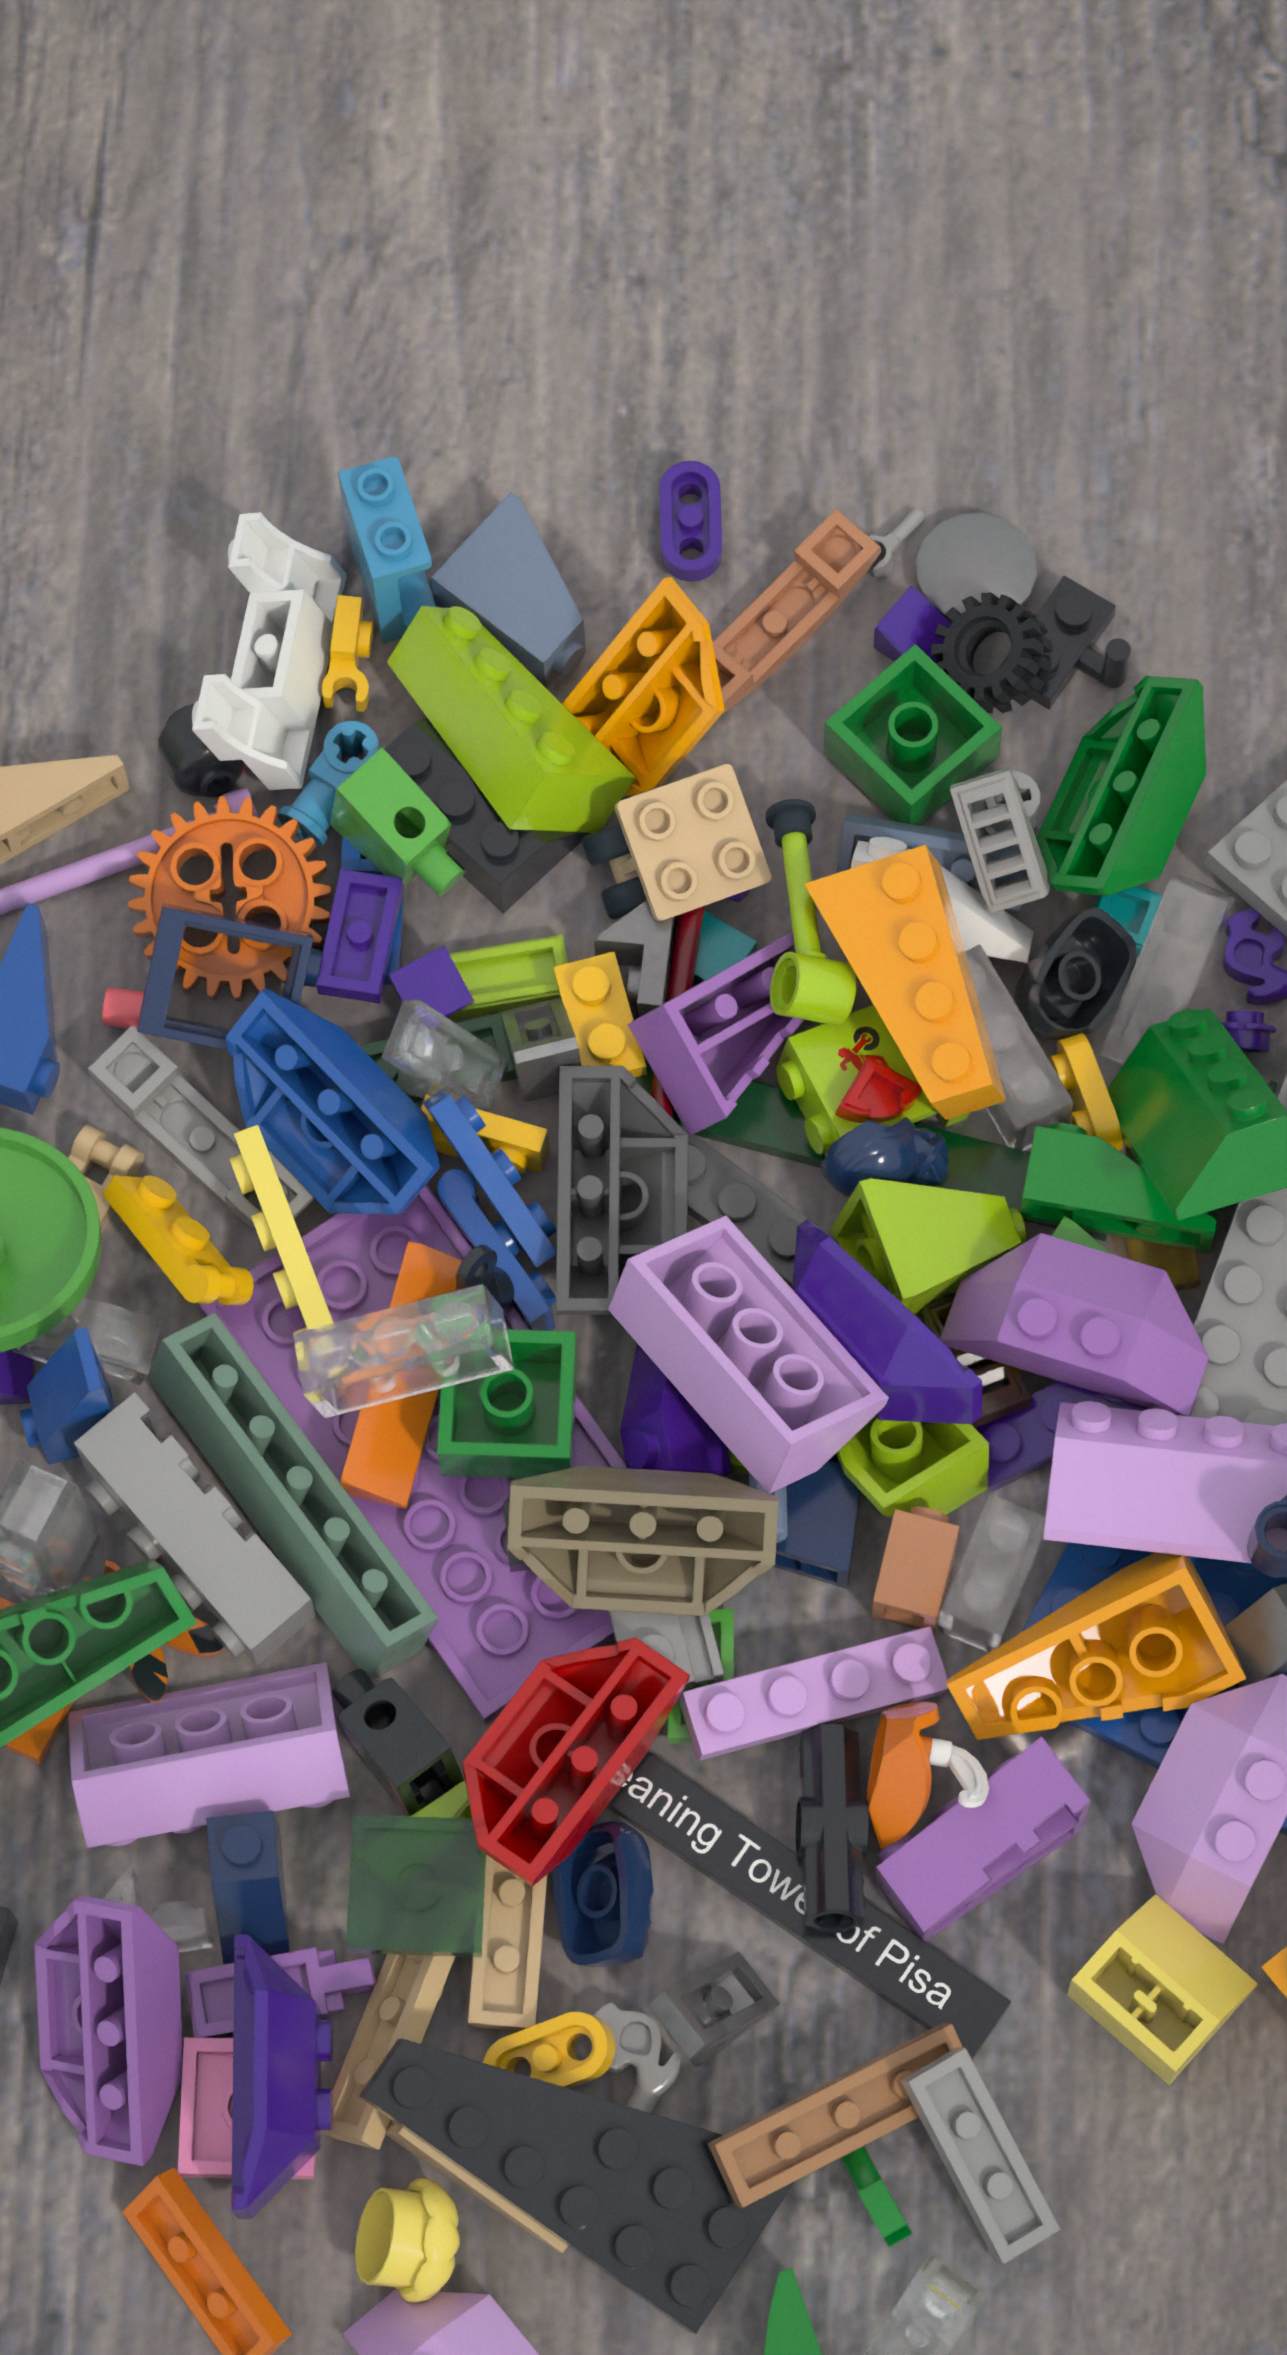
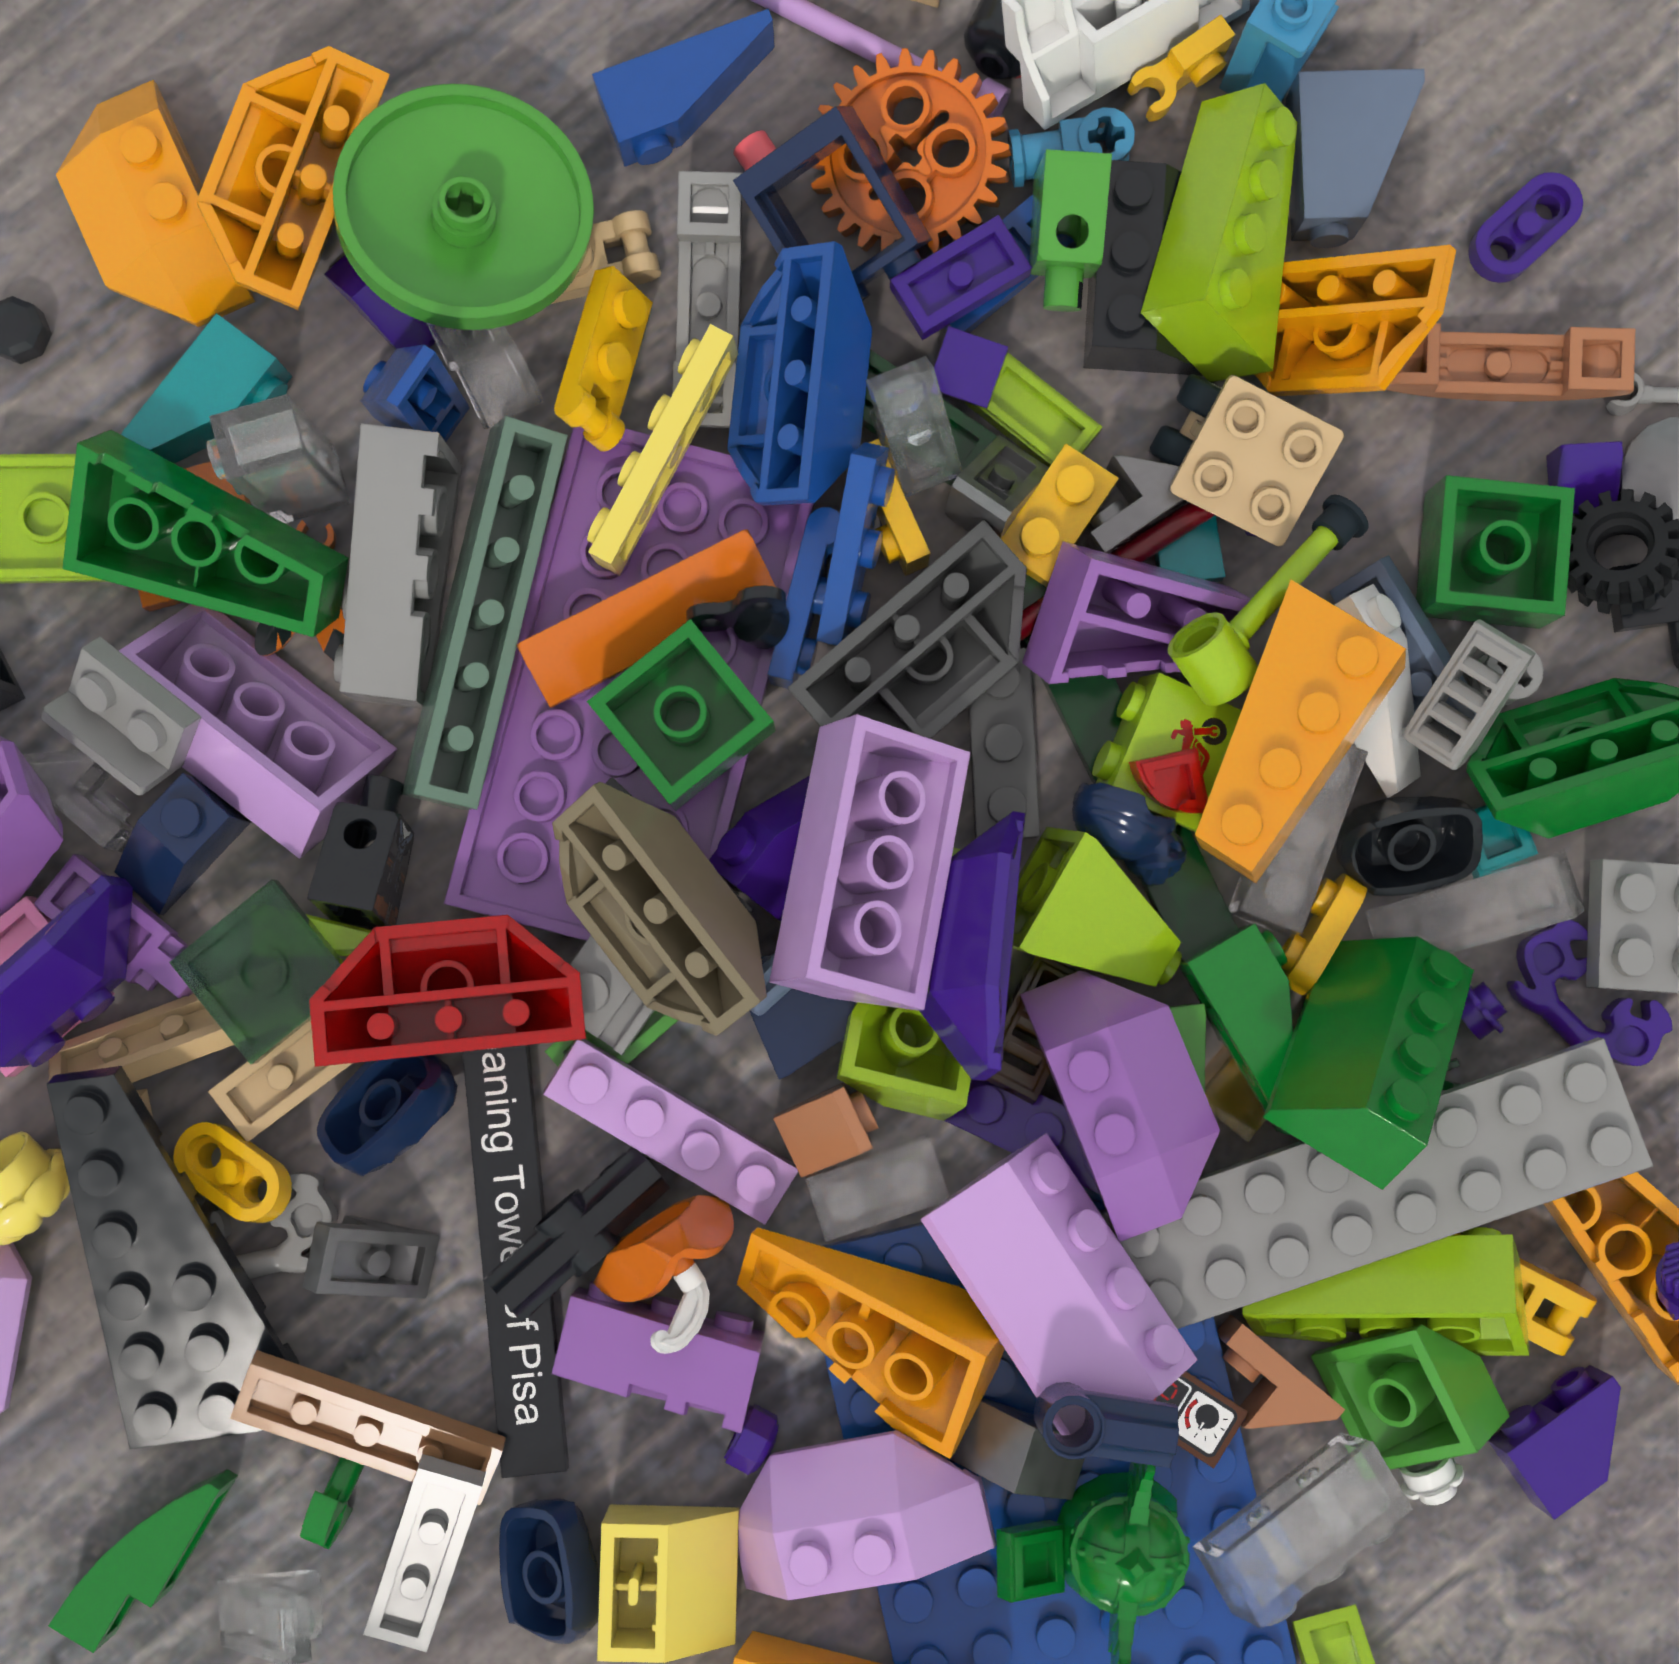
camera: 45 degrees right, 15 degrees up
(124, 1821) = (123, 718): none -> light grey bracket
(403, 1351) = (635, 606): clear brick -> none
(1077, 2073) = (549, 1570): none -> dark blue piece
(1109, 1835) = (755, 1442): none -> dark purple tile

